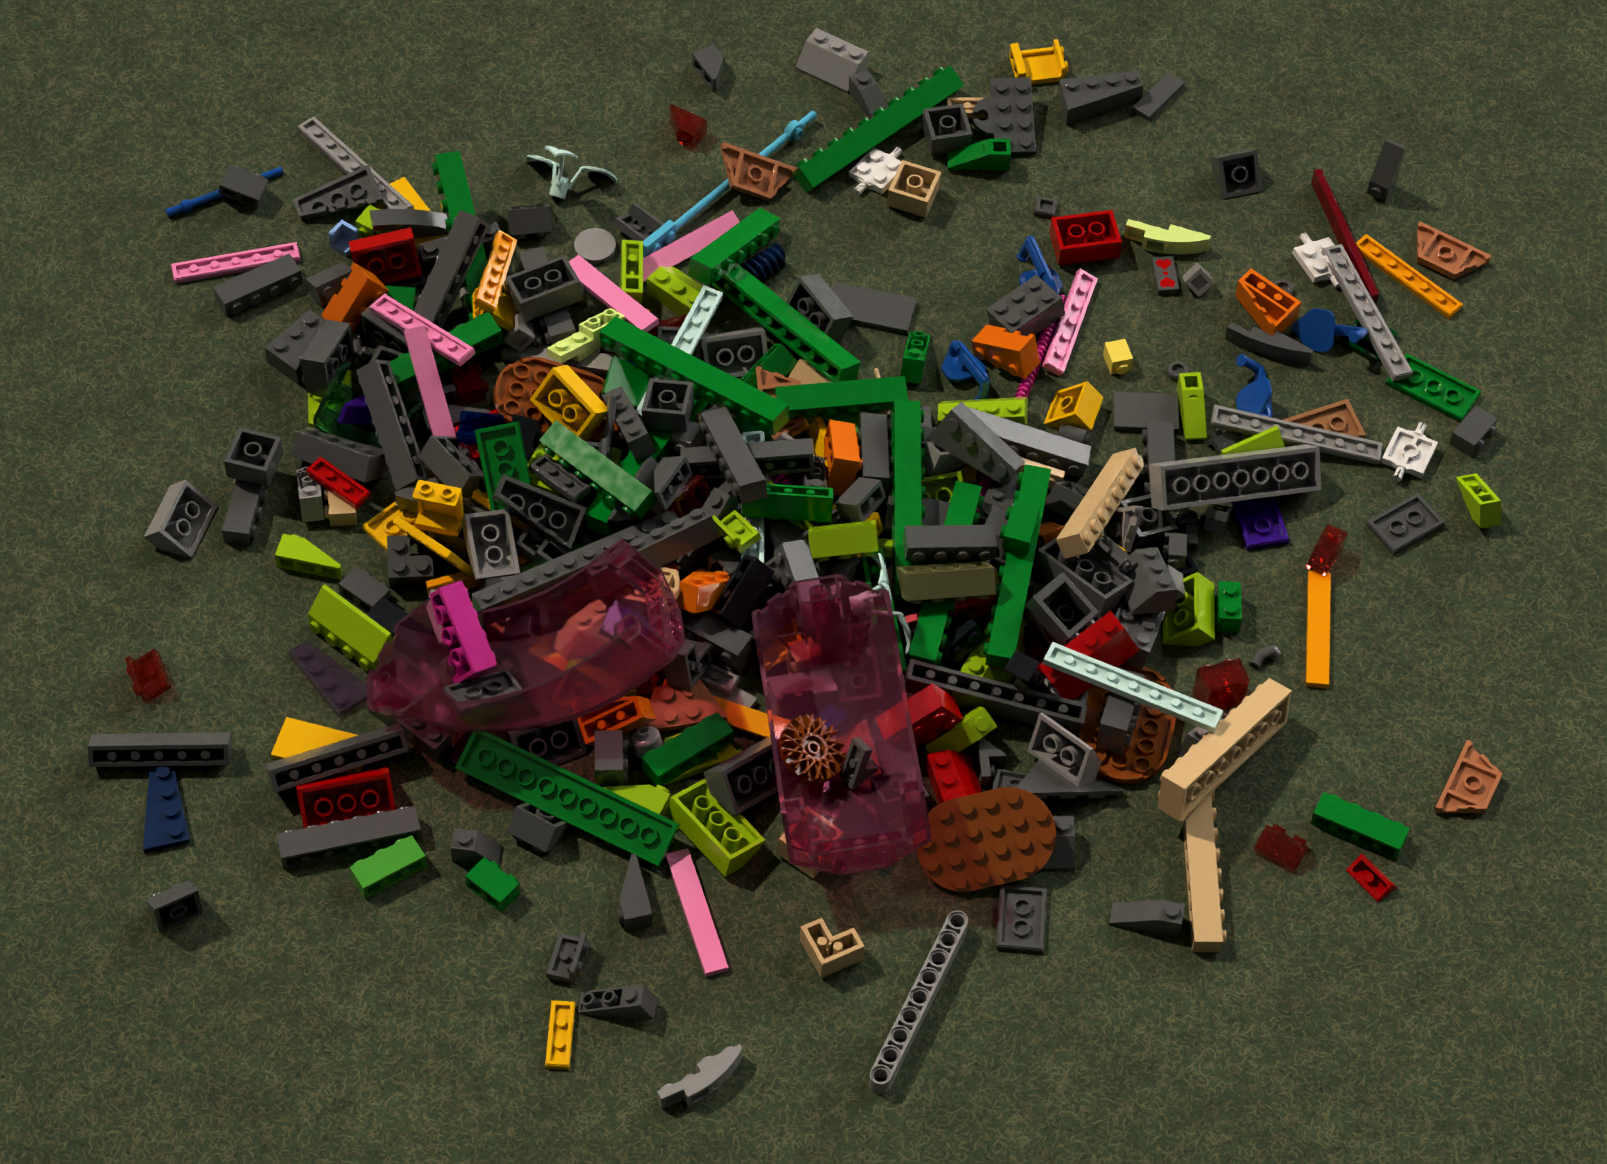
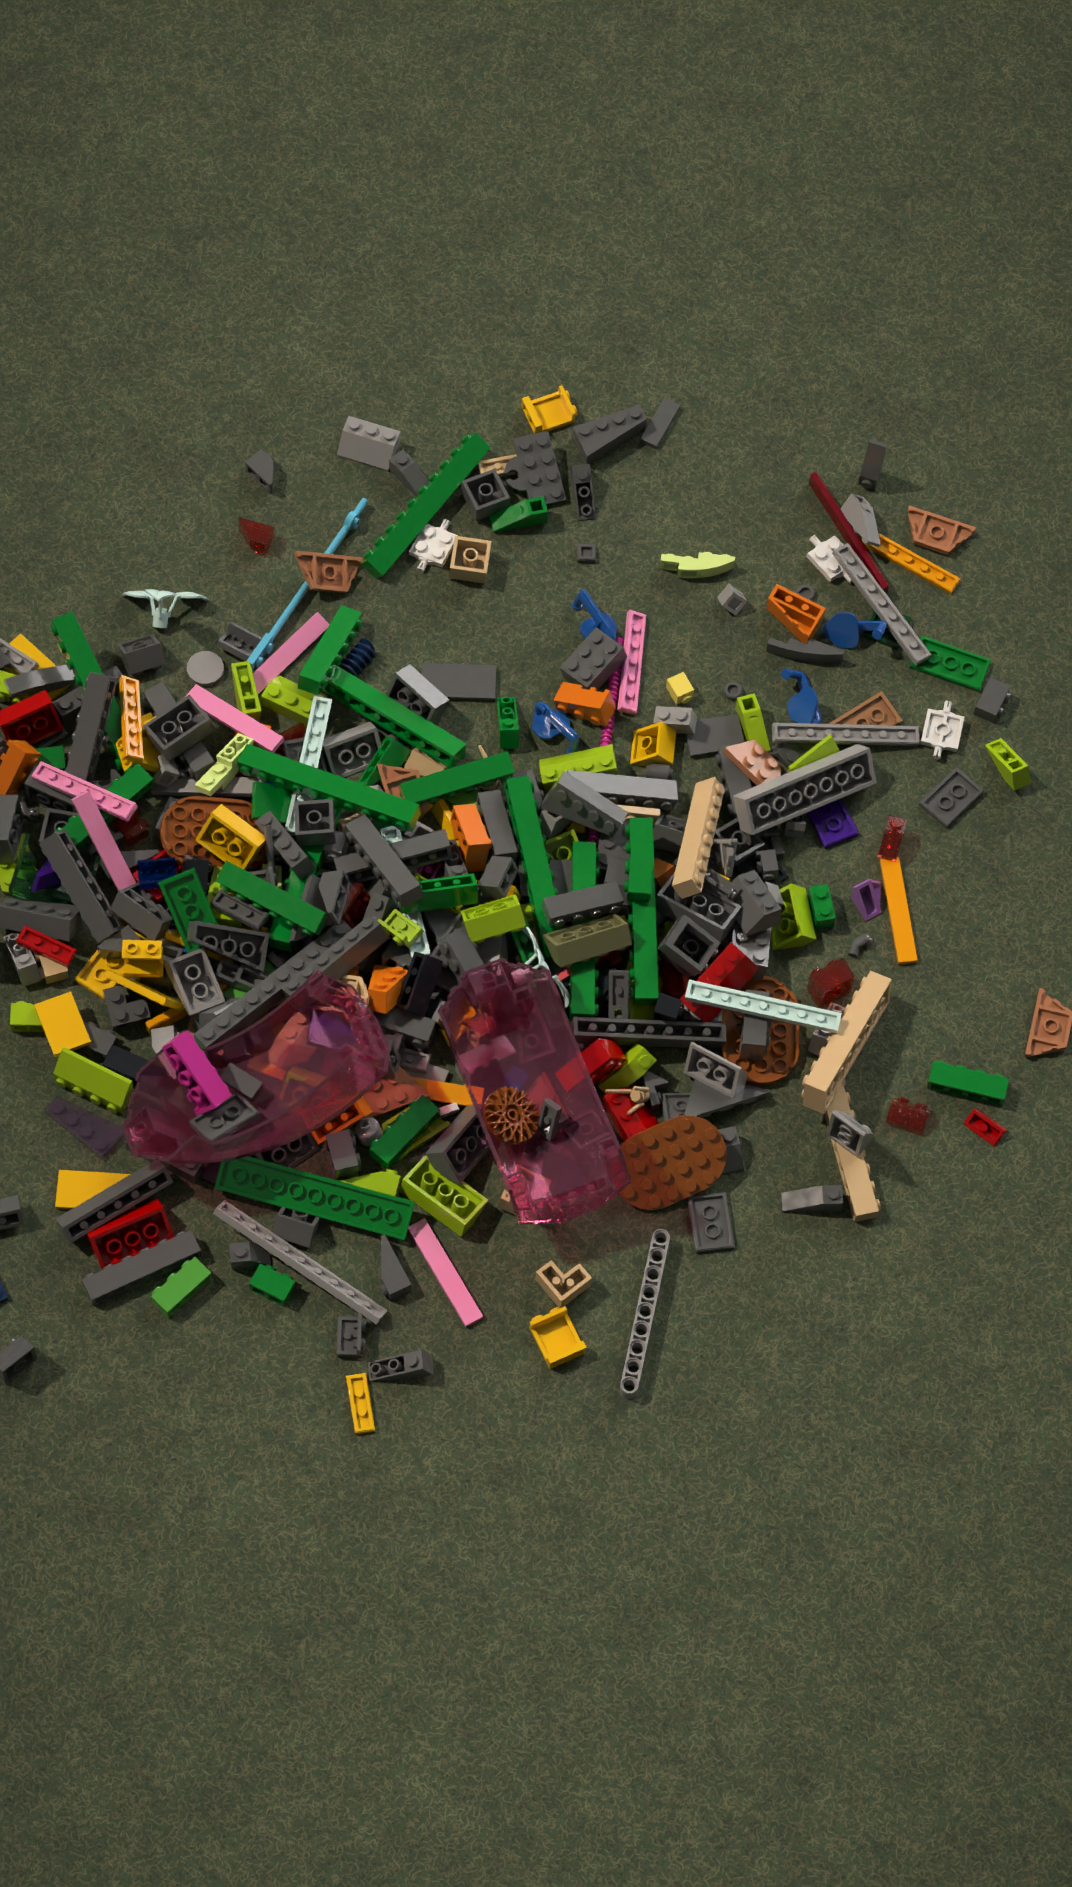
camera: 15 degrees left, 10 degrees up
(333, 563) = (62, 1023): none -> yellow tile
(514, 658) = (241, 1081): none -> dark grey tile
(531, 865) = (299, 1261): none -> light grey plate
(710, 1076) = (491, 1413): light grey slope -> none
(744, 738) = (448, 1110): none -> tile
(809, 1007) = (556, 1337): none -> yellow panel
(968, 761) = (637, 1094): none -> tan plant
(969, 645) = (619, 994): none -> dark grey plate
(1056, 145) = (583, 491): none -> dark grey slope
(1085, 237) = (628, 578): red brick -> none
(1109, 383) = (678, 718): none -> light grey brick
(1165, 275) = (702, 599): dark grey tile -> none
(1181, 438) = (753, 761): none -> nougat wing
(1204, 845) = (848, 1132): none -> light grey slope
(1237, 173) = (744, 487): dark grey slope -> none
(1284, 607) = (867, 898): none -> medium lavender slope
(1363, 222) = (862, 518): none -> light grey slope

